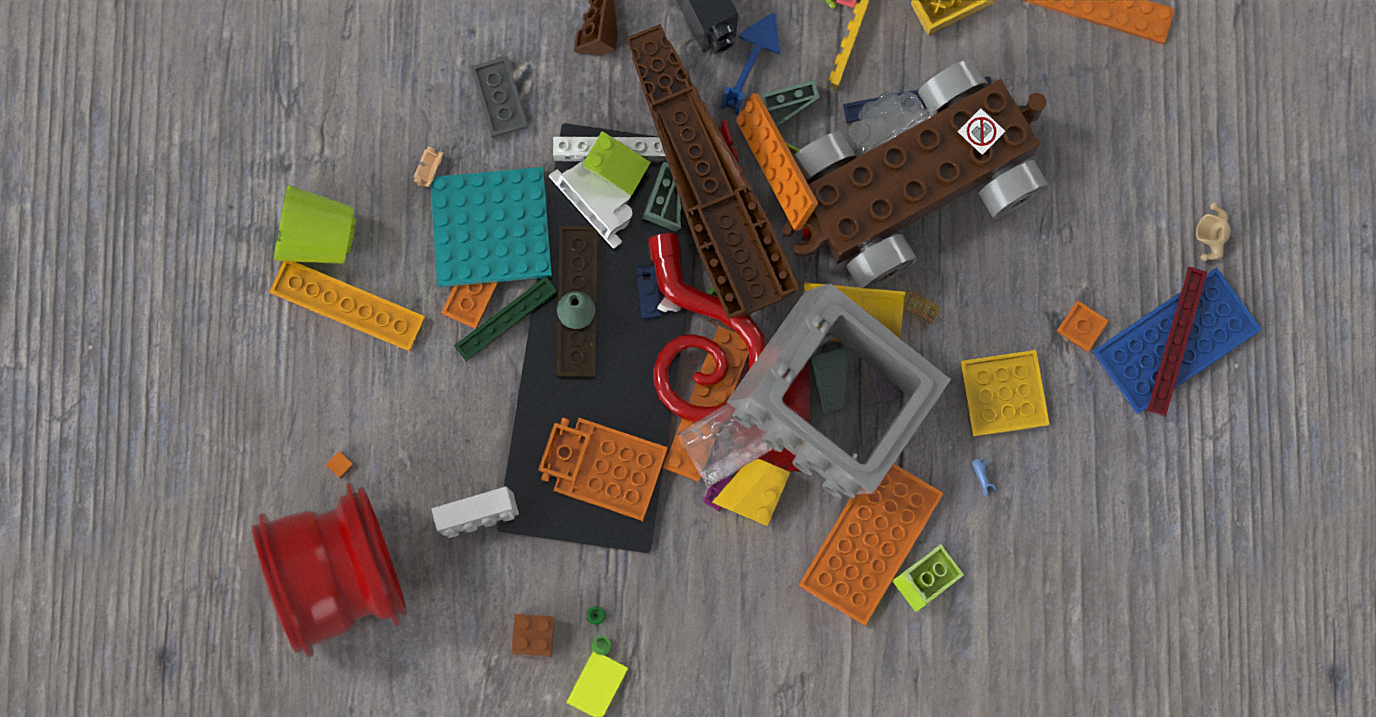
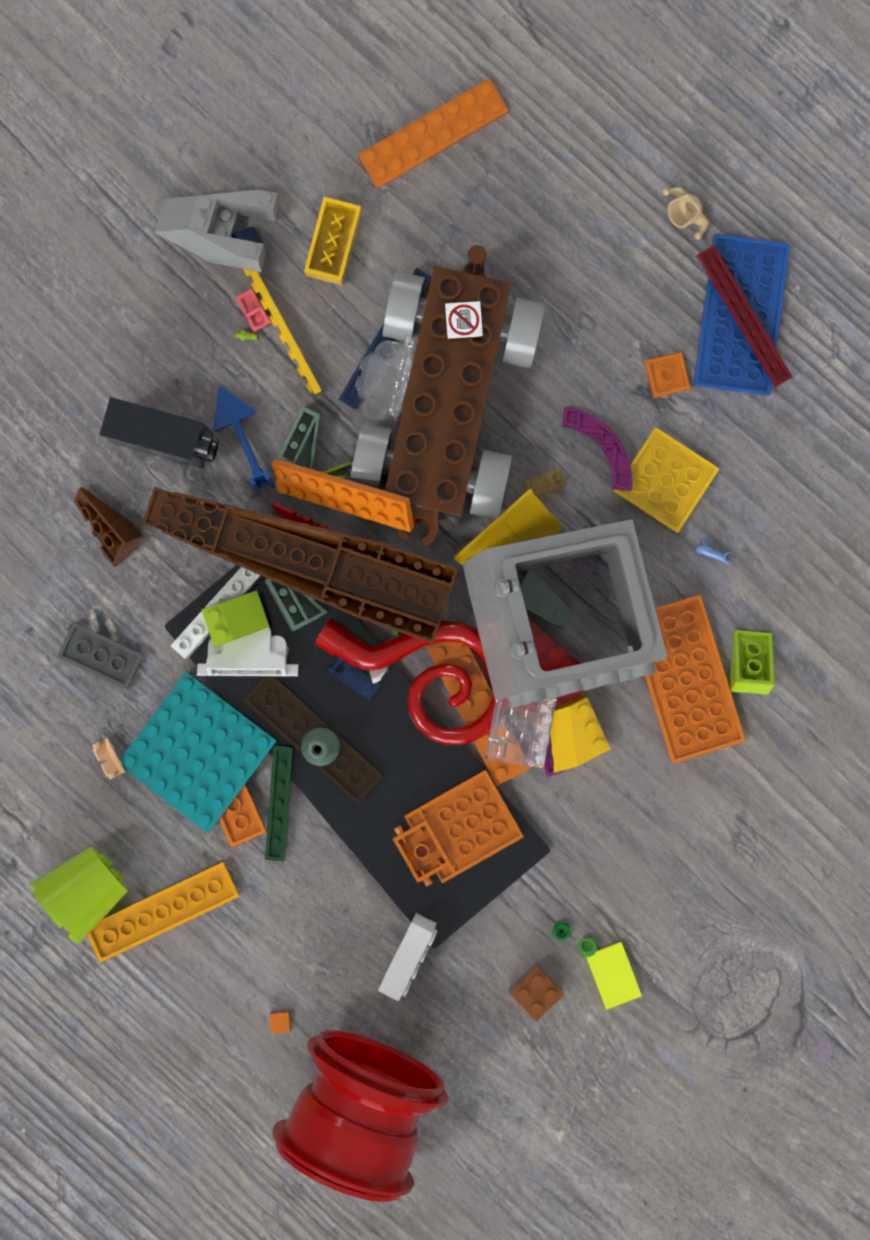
camera: 45 degrees left, 10 degrees up
(993, 323) = (607, 442): none -> magenta tile

